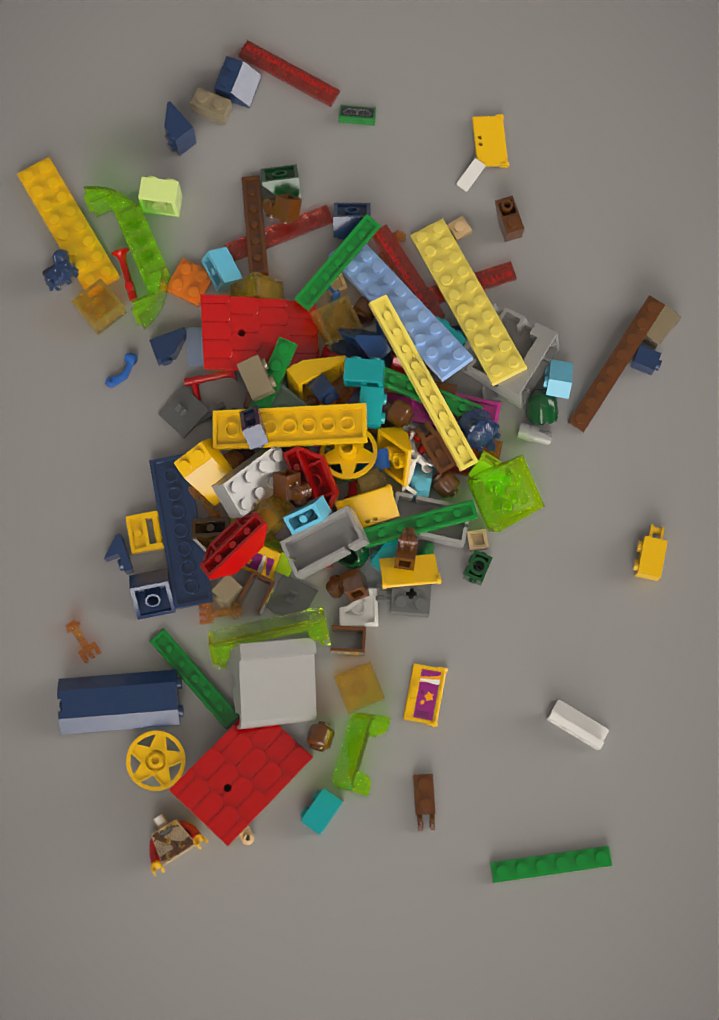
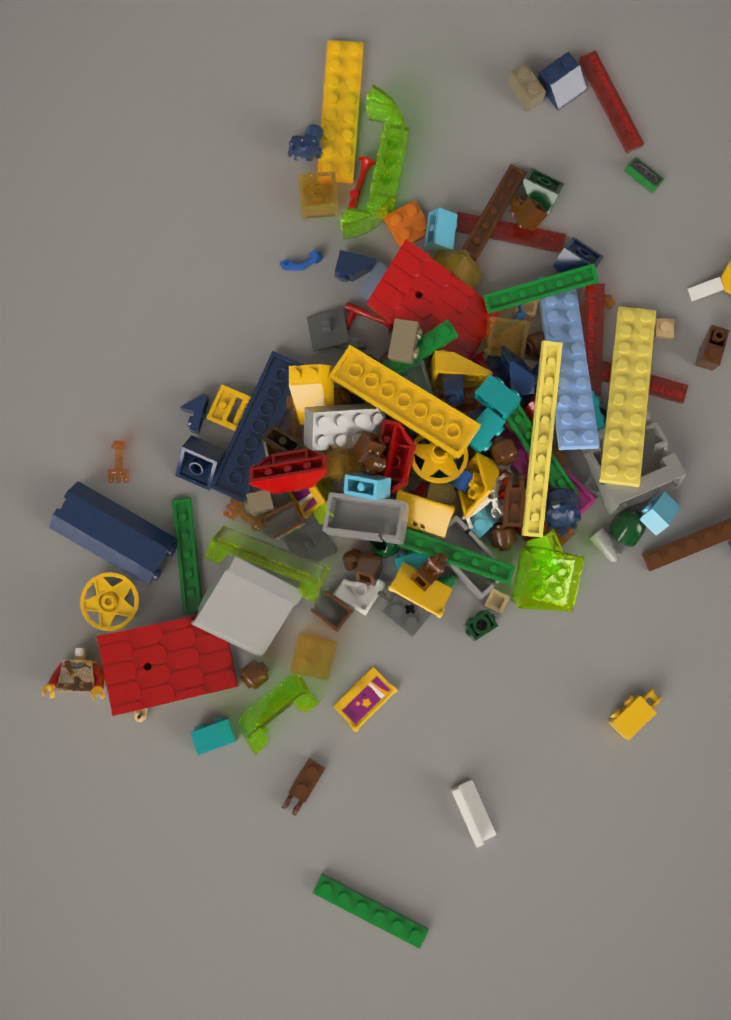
camera: 30 degrees right, 5 degrees up
(160, 196) = (431, 135): yellowish green brick -> none
(178, 131) = (484, 89): dark blue slope -> none
(253, 427) = (372, 382): slope -> none

